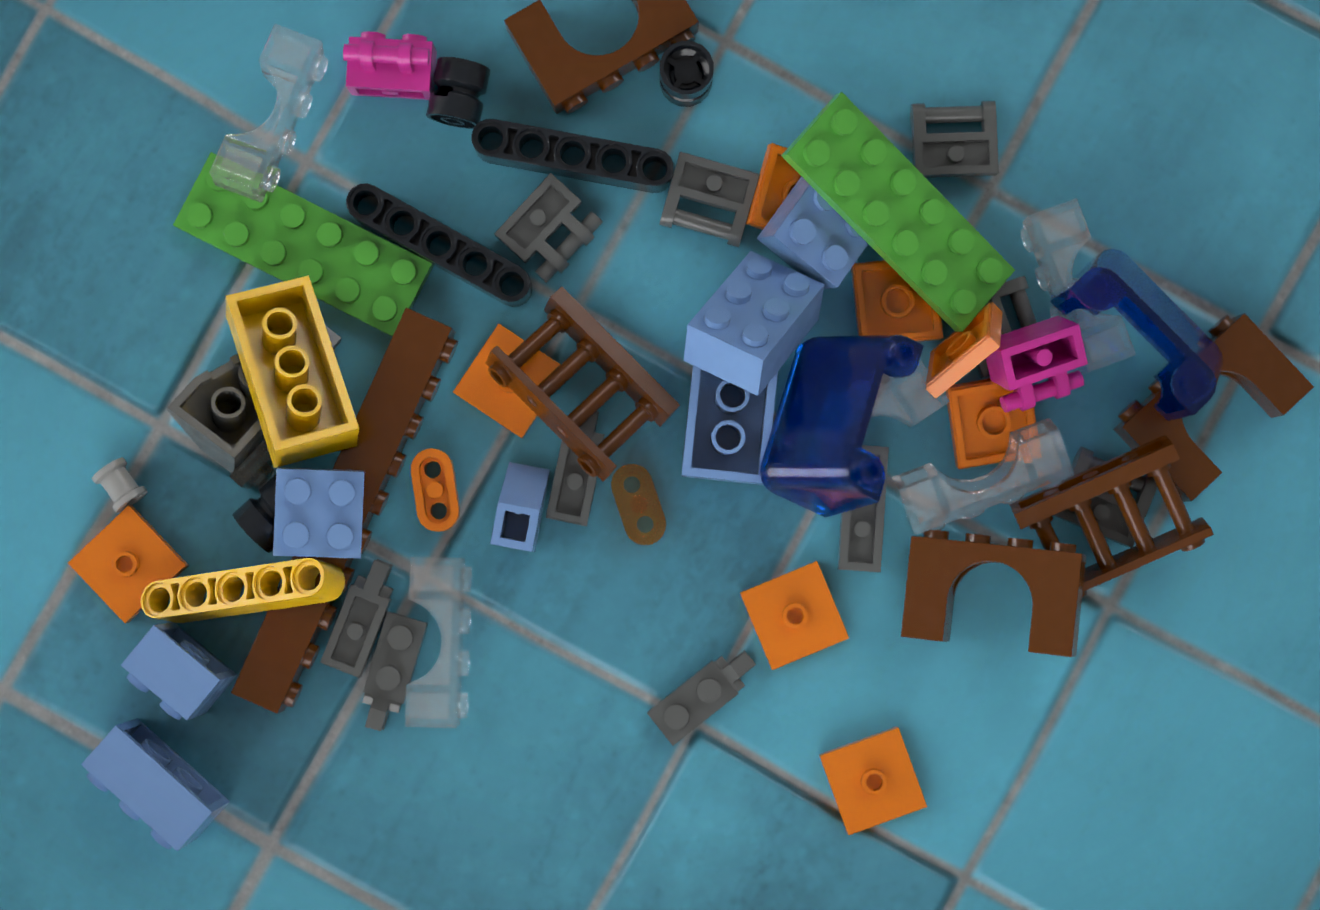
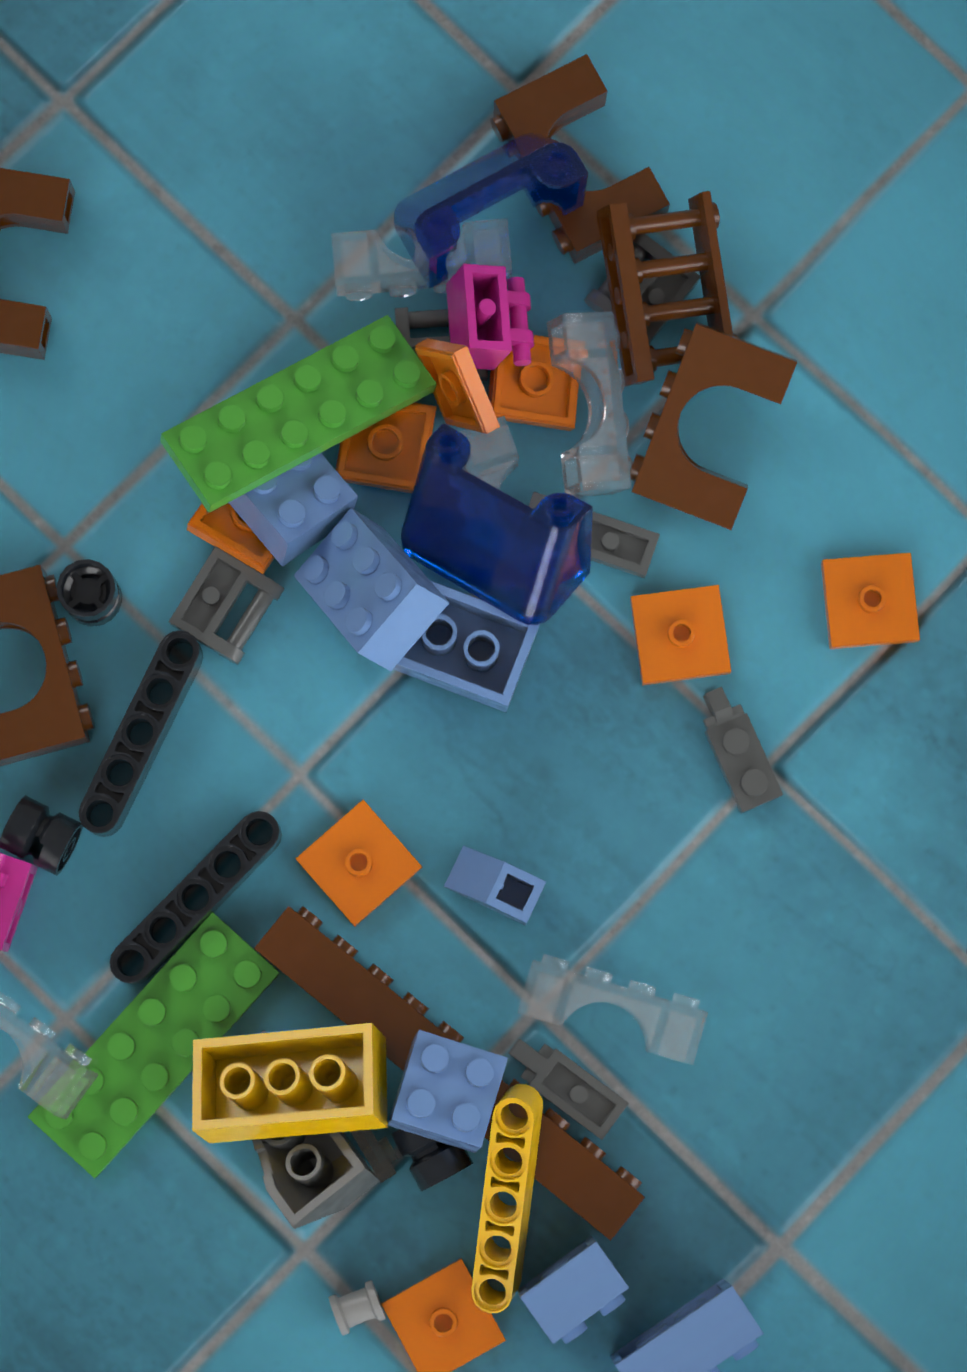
camera: 80 degrees left, 5 degrees down
(392, 667) = (626, 1066): dark grey hinge -> none
(435, 490) = (452, 971): orange plate -> none
(539, 219) = (197, 787): dark grey plate -> none
(572, 486) = (473, 817): dark grey hinge -> none
(592, 345) = (383, 743): reddish brown fence -> none
(638, 504) = (524, 764): clear orange plate -> none
(955, 153) = (248, 342): dark grey plate -> none

